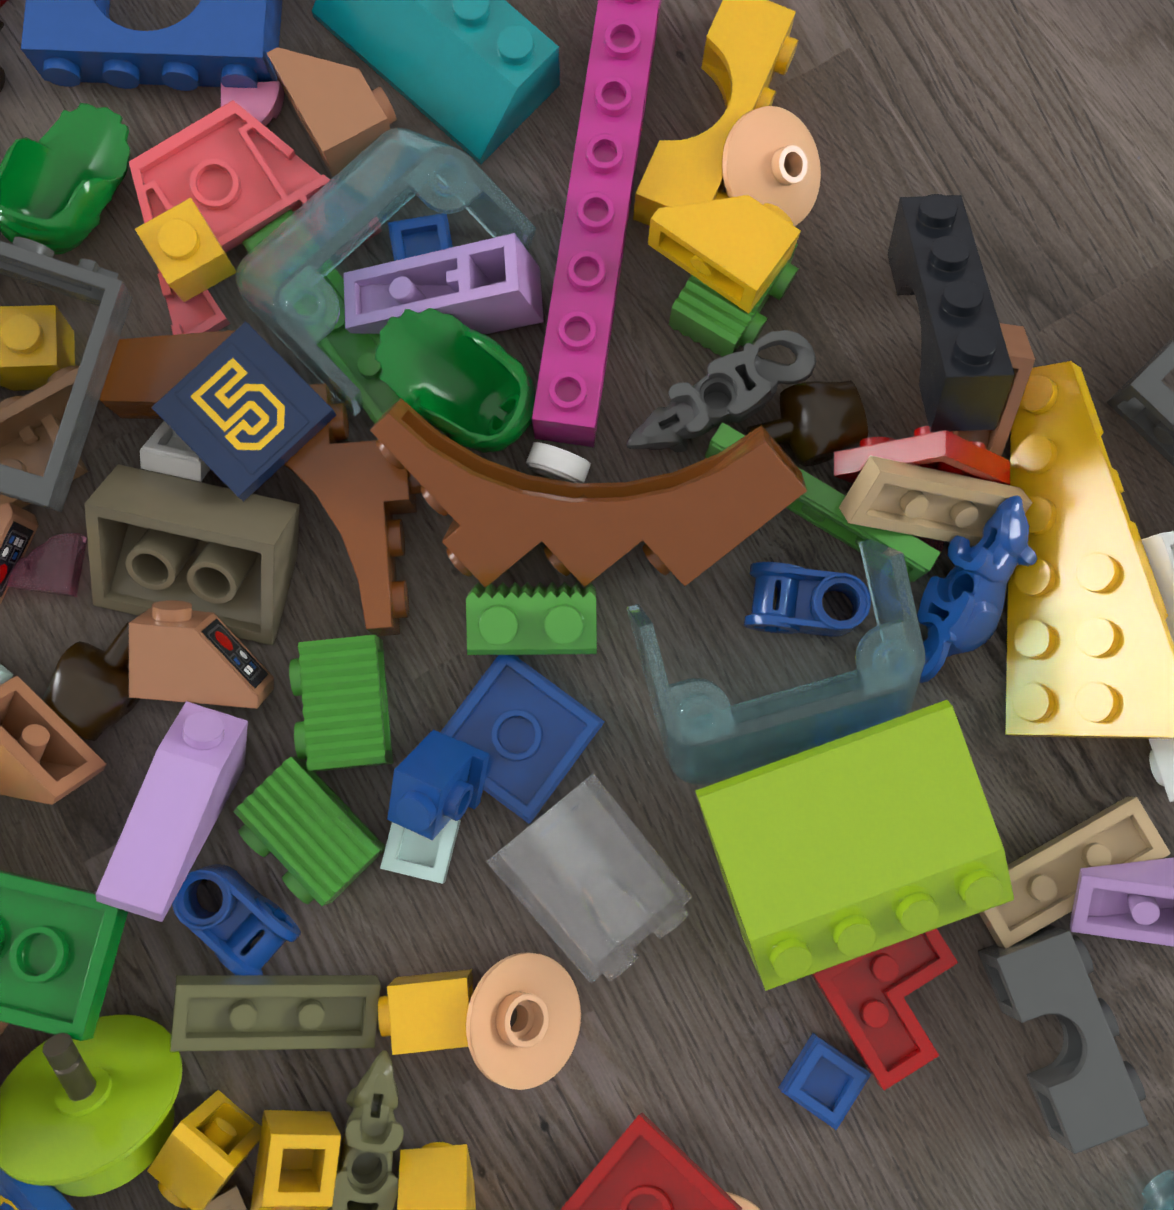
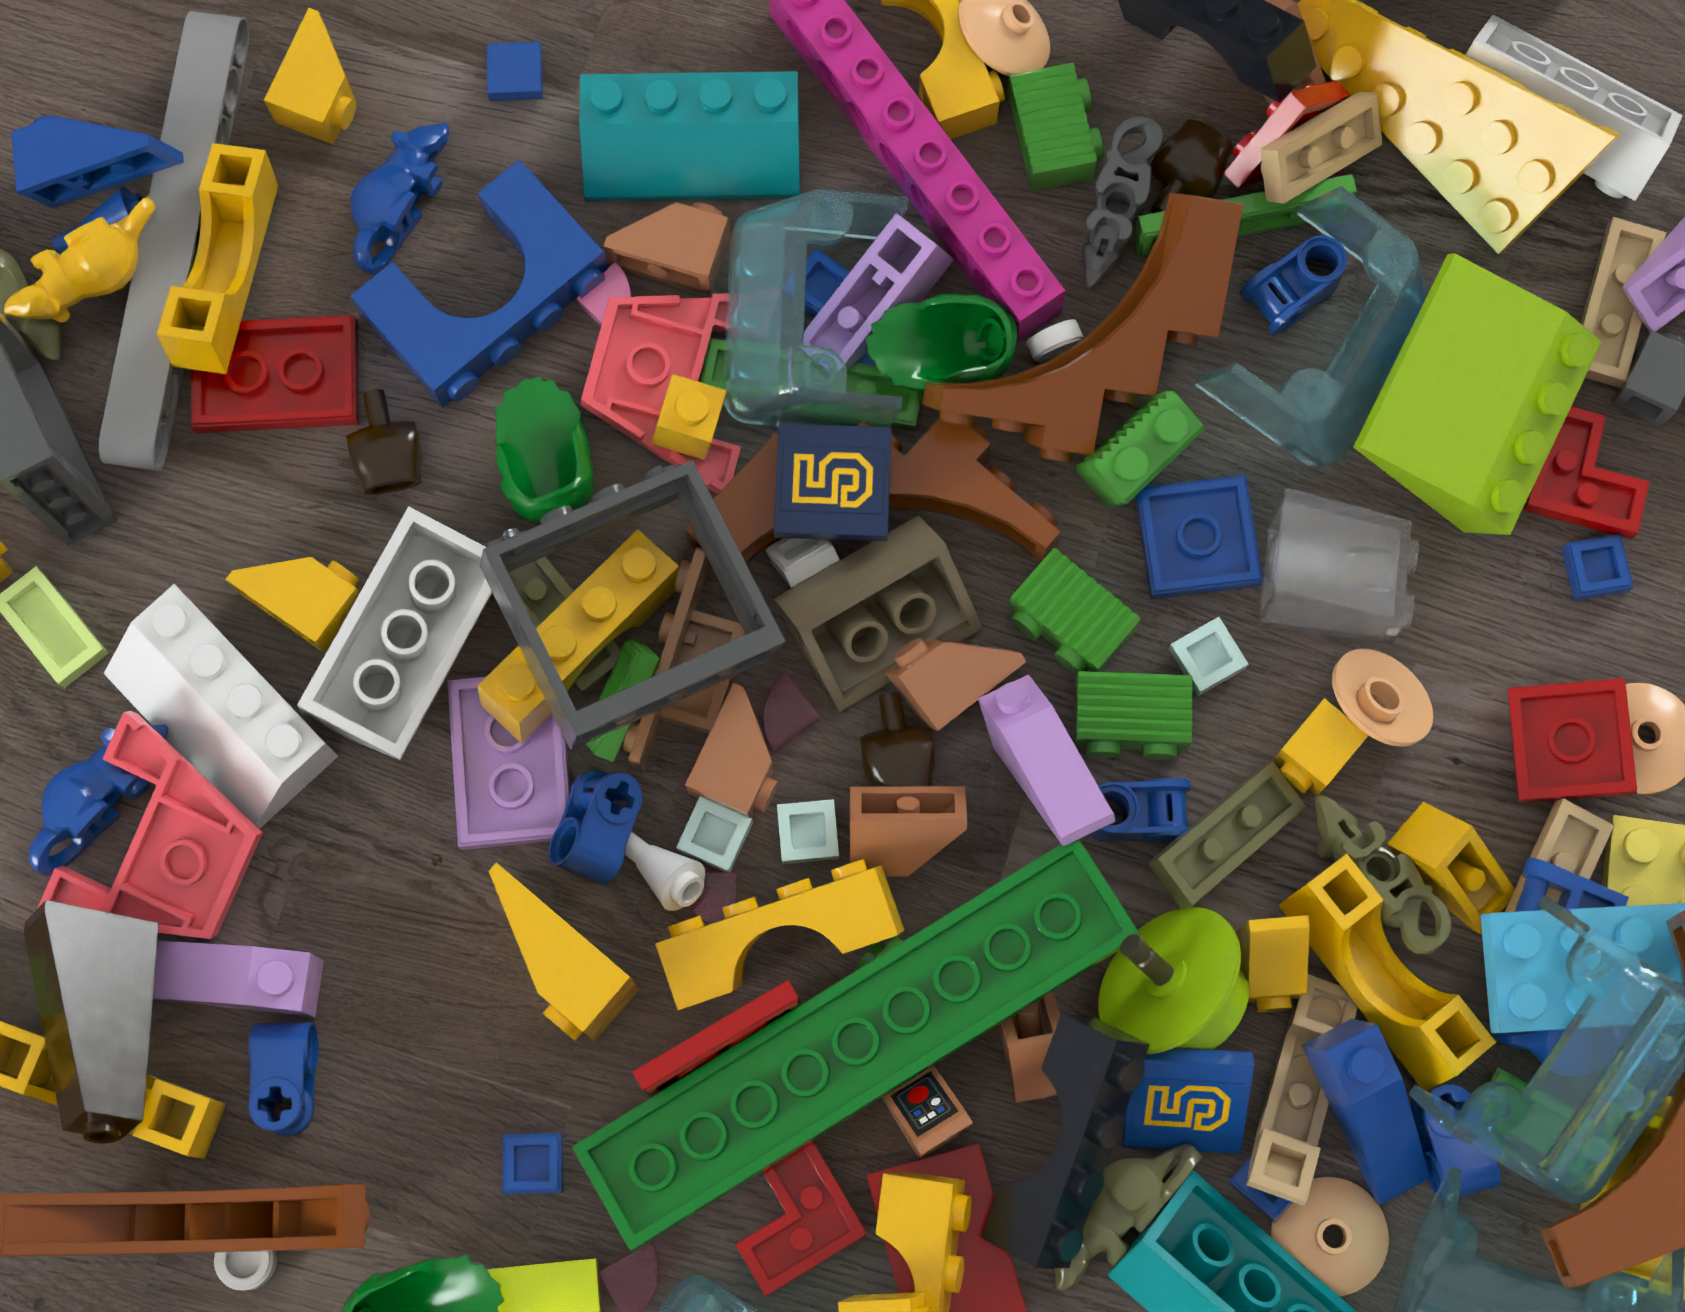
camera: 40 degrees left, 5 degrees down
(436, 784) = (1186, 602): blue brick -> none
(727, 244) = (1039, 101): yellow slope -> none
(970, 600) = (1393, 180): blue animal -> none

